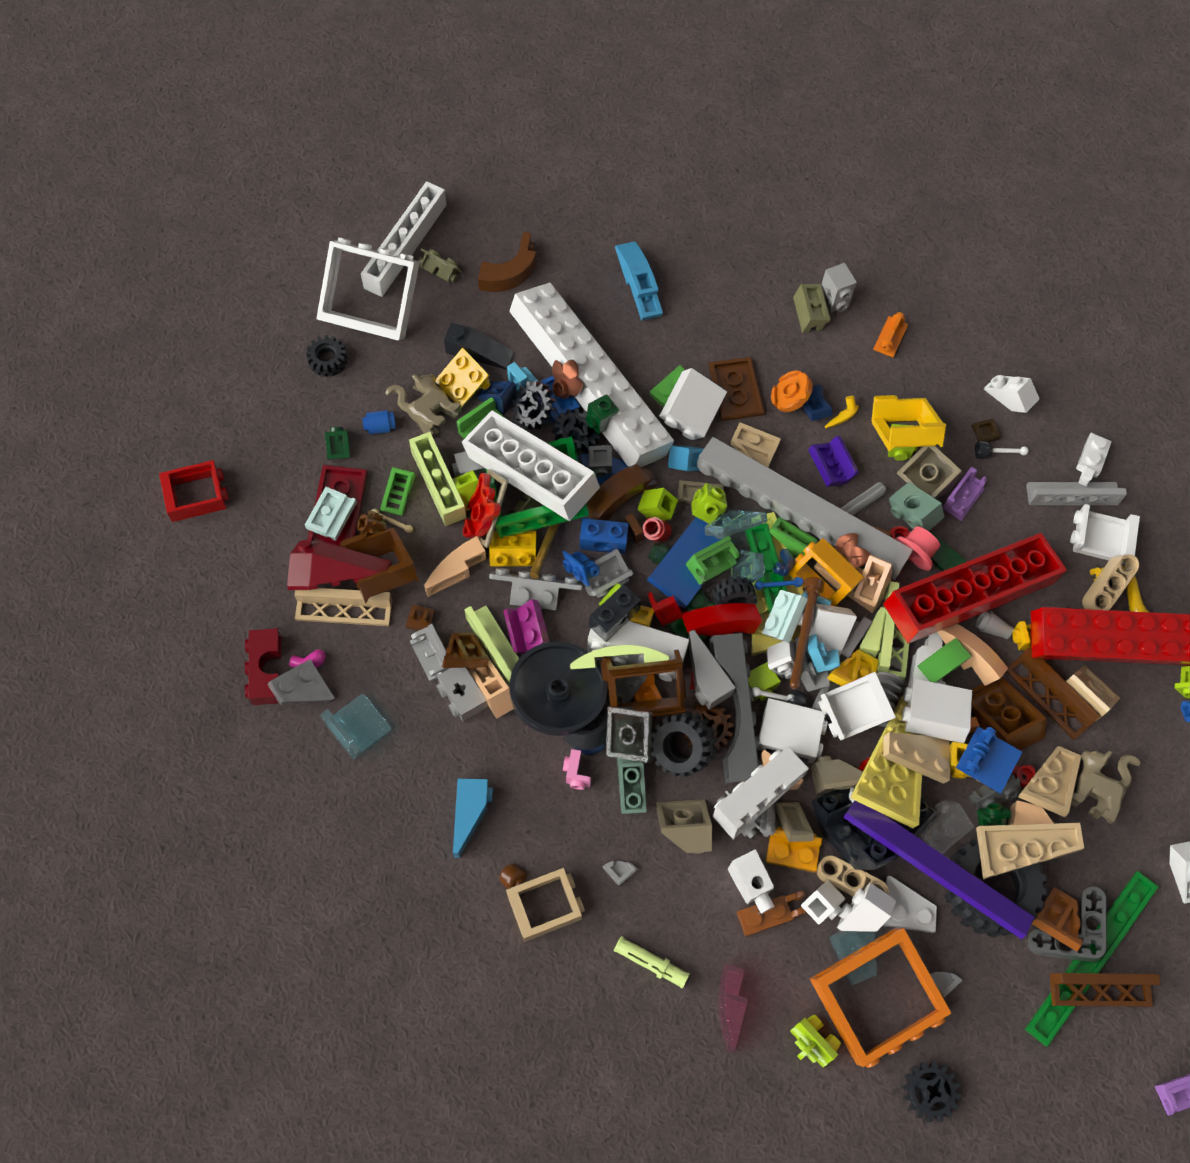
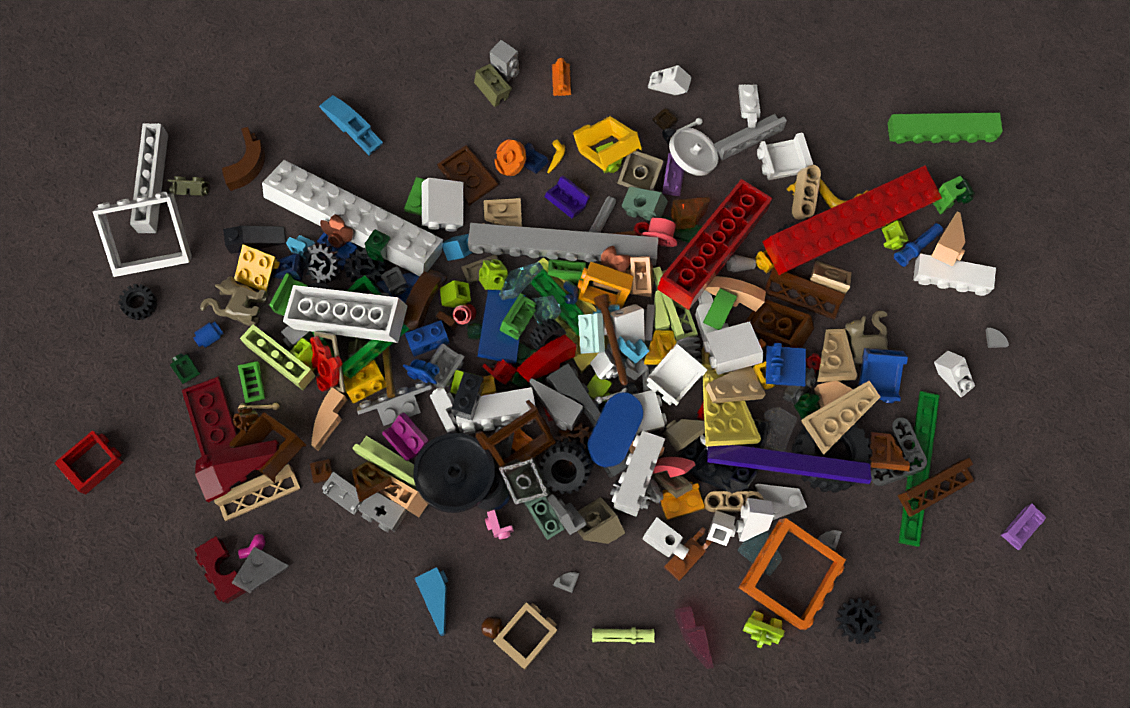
camera: 25 degrees left, 5 degrees up
(330, 513) = (209, 426): light aqua plate -> none
(356, 725) = (317, 577): clear light blue bracket -> none
(583, 608) = (443, 404): none -> white plate
(589, 659) = (467, 440): yellowish green slope -> none
(657, 799) = (567, 515): none -> light grey bracket
(758, 732) = (615, 429): none -> blue tile
(797, 582) = (587, 302): blue hinge -> none
(803, 805) = (673, 465): none -> coral slope
(963, 541) = (688, 212): none -> clear orange slope
(1001, 479) = (693, 151): none -> white piece
(1103, 826) = (884, 372): none -> blue panel

